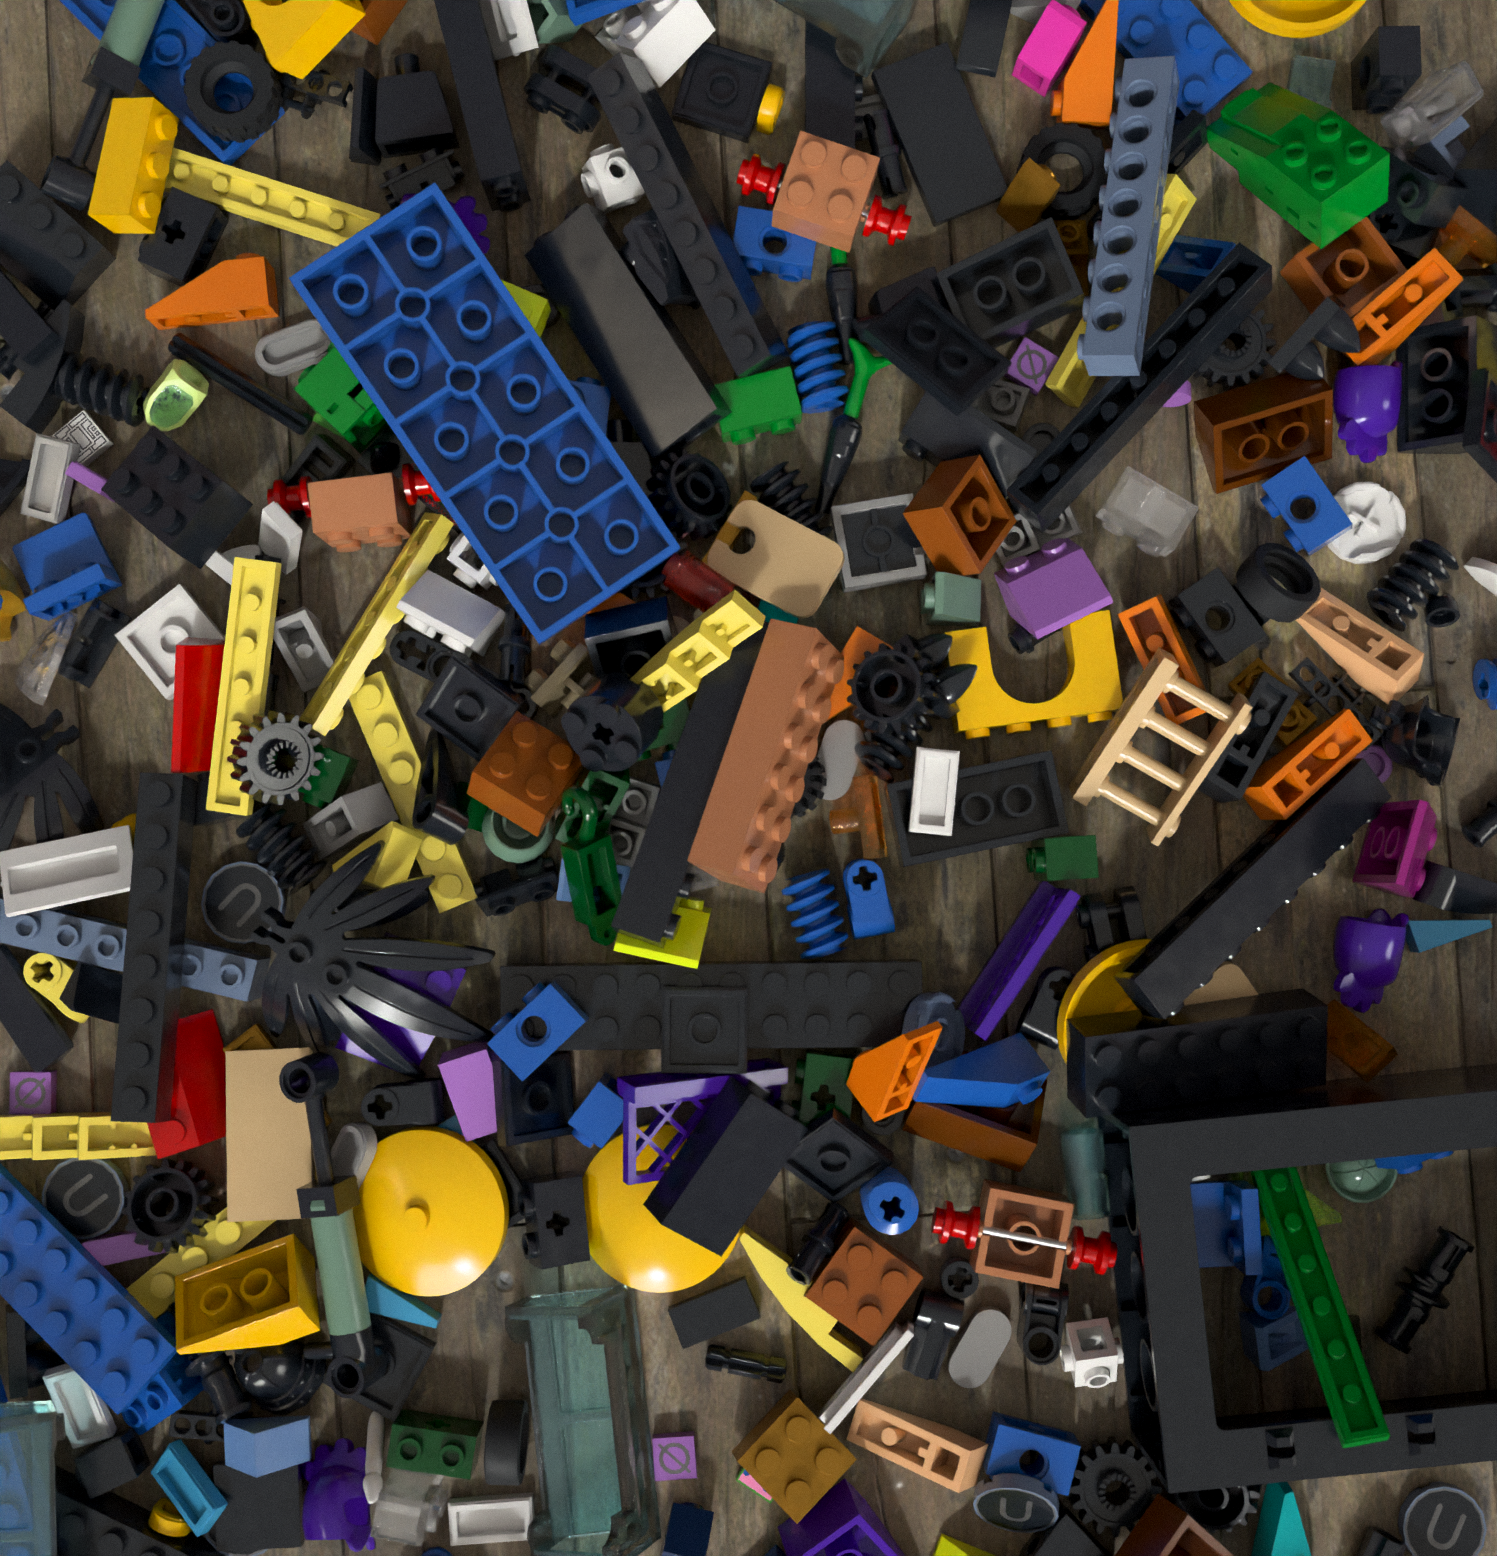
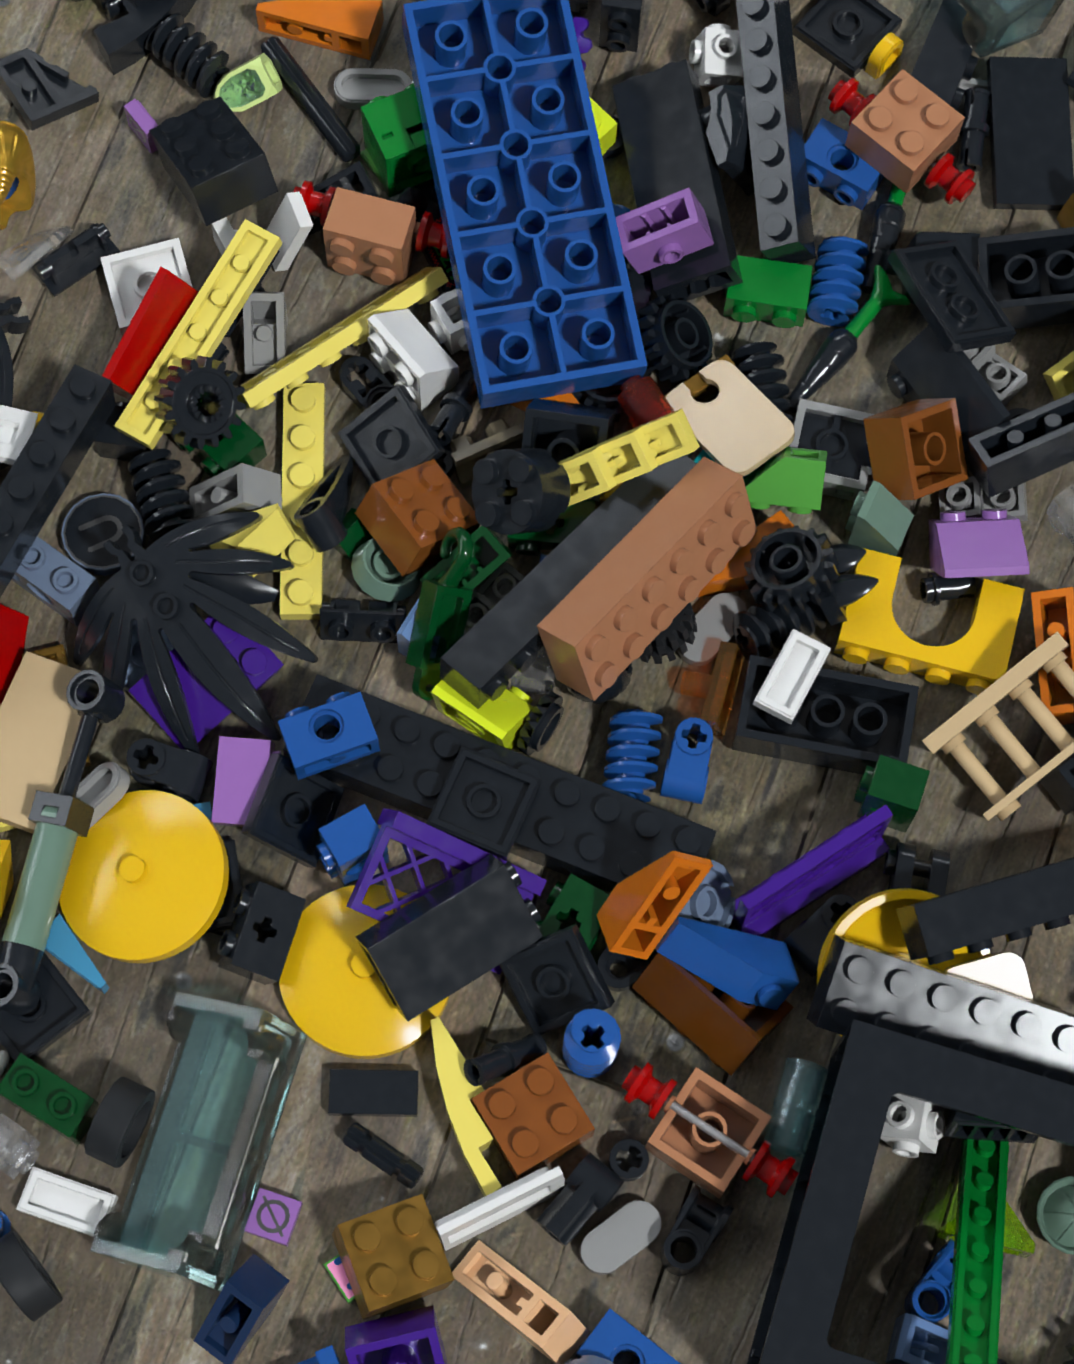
camera: 20 degrees right, 15 degrees down
(47, 485) = (105, 110): light grey tile -> none
(65, 567) = (83, 187): blue bracket -> none
(88, 433) = (150, 89): white tile -> none
(640, 401) = (664, 231): none -> medium lavender brick
(721, 922) = (541, 724): none -> black gear
(855, 598) = (789, 480): none -> bright green slope
(1031, 366) = (1035, 357): medium lavender tile -> none
(1091, 1353) = (730, 1281): white brick -> none
(1227, 1225) = (905, 1212): blue bracket -> none

